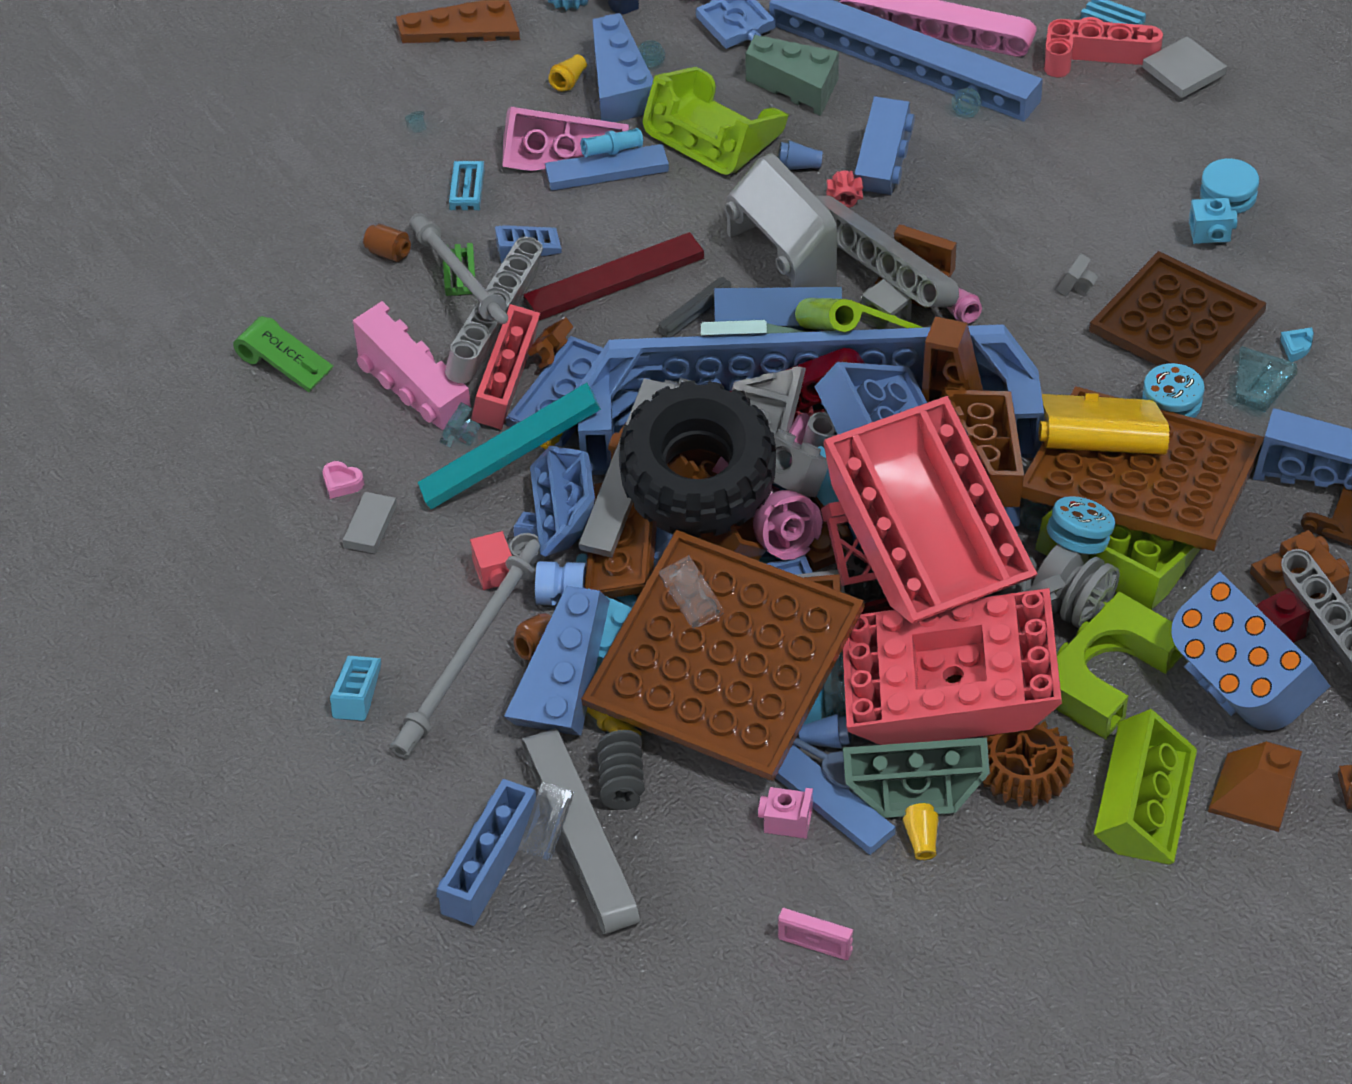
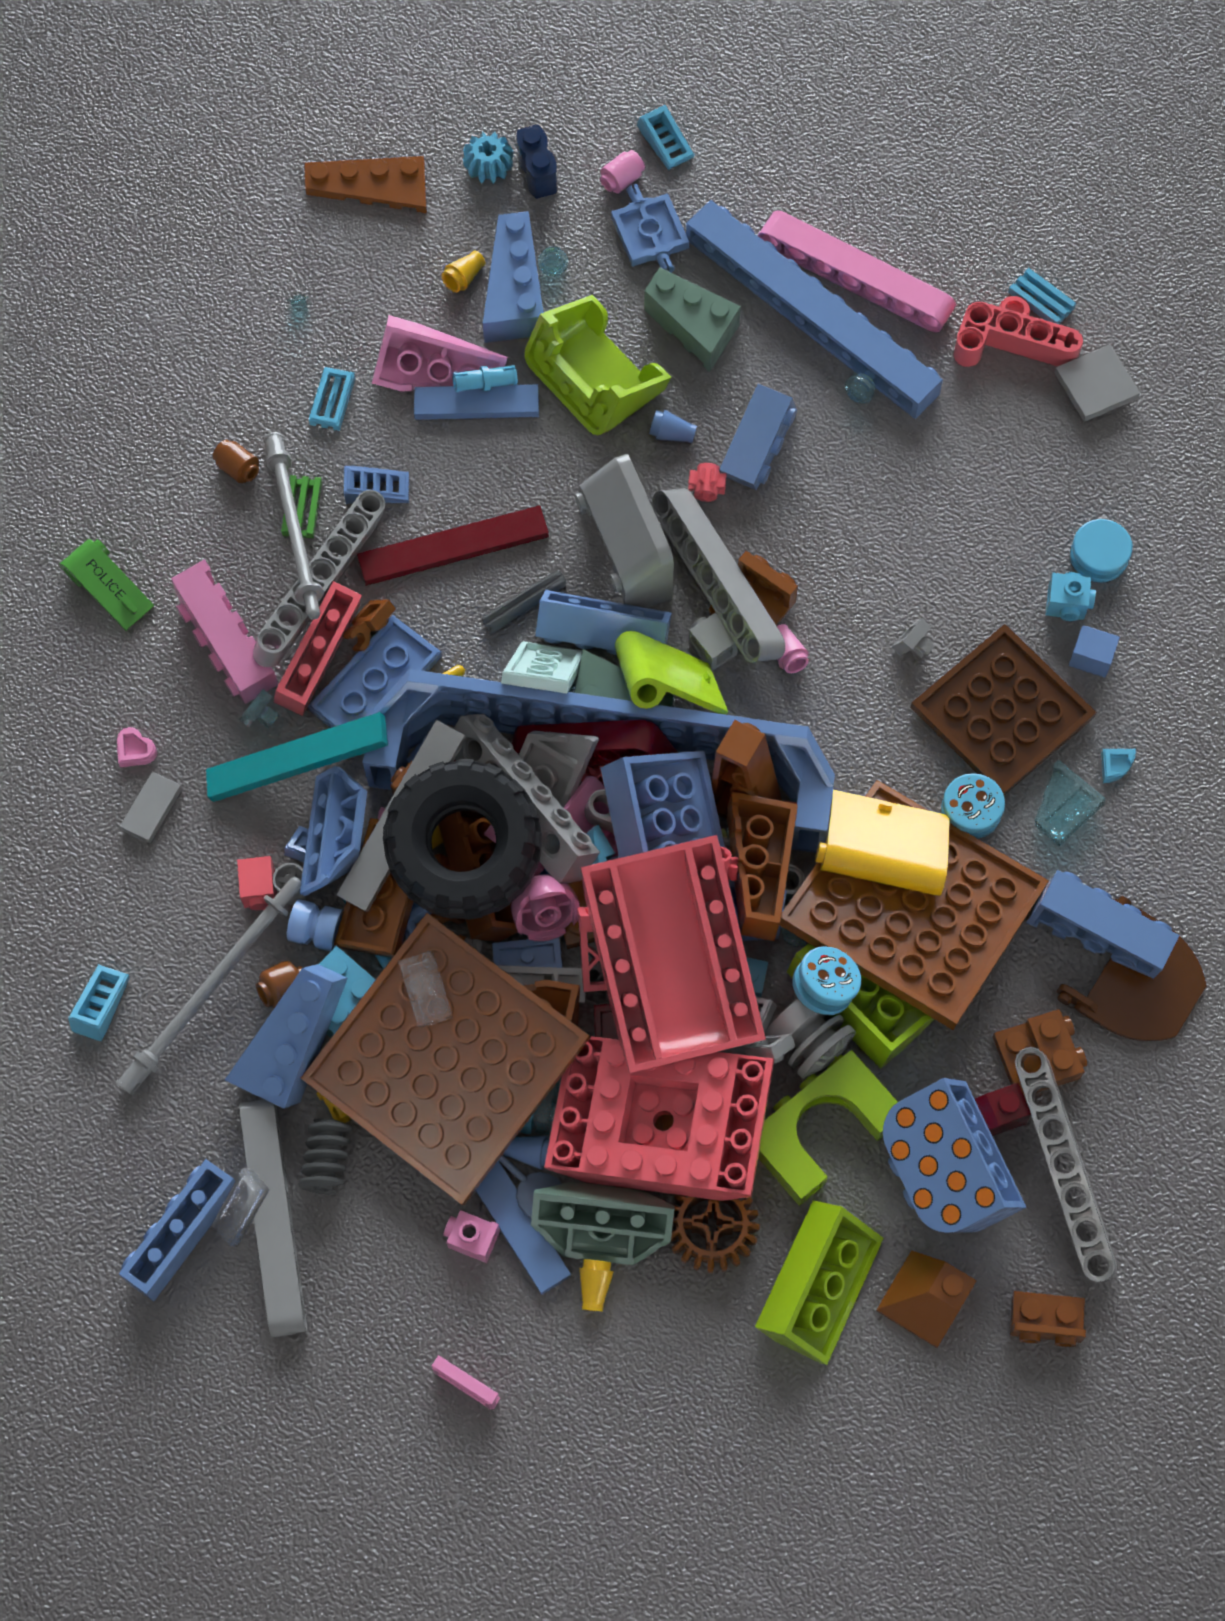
camera: 10 degrees right, 20 degrees up
(1248, 259) = (1094, 651): none -> medium blue panel

